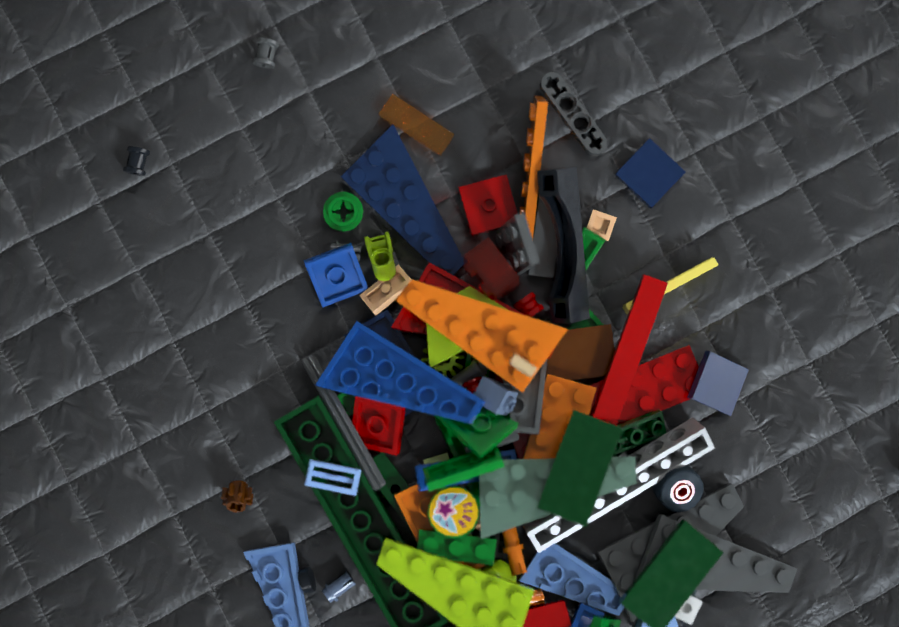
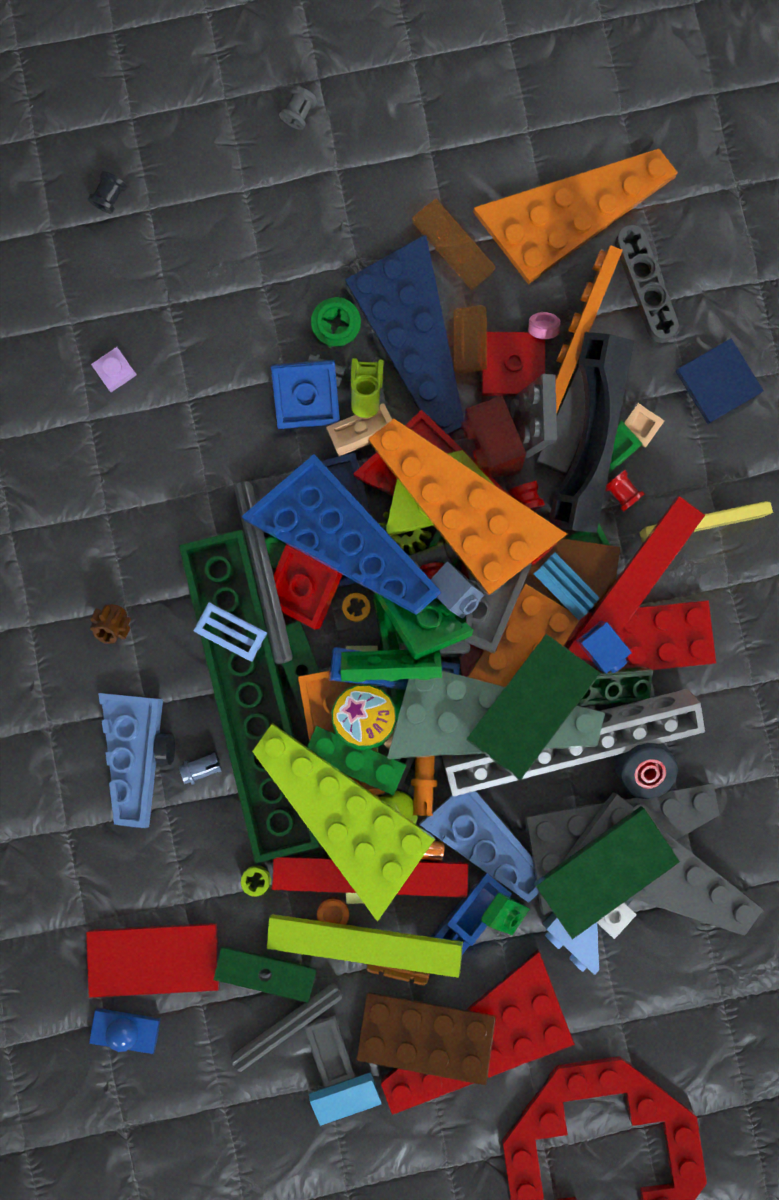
camera: 25 degrees right, 0 degrees up
(181, 297) = (113, 369): none -> lavender plate
(414, 427) = (347, 604): none -> light orange bush
(450, 195) = (470, 339): none -> clear orange tile
(490, 82) = (557, 218): none -> orange wing
(504, 169) = (544, 325): none -> bright pink tile
(522, 365) = (499, 559): tan tile -> none
(578, 364) = (566, 586): none -> dark azure tile
(601, 279) = (624, 490): none -> red bush
(621, 406) = (604, 647): none -> blue brick
(718, 383) = (730, 656): tile -> none

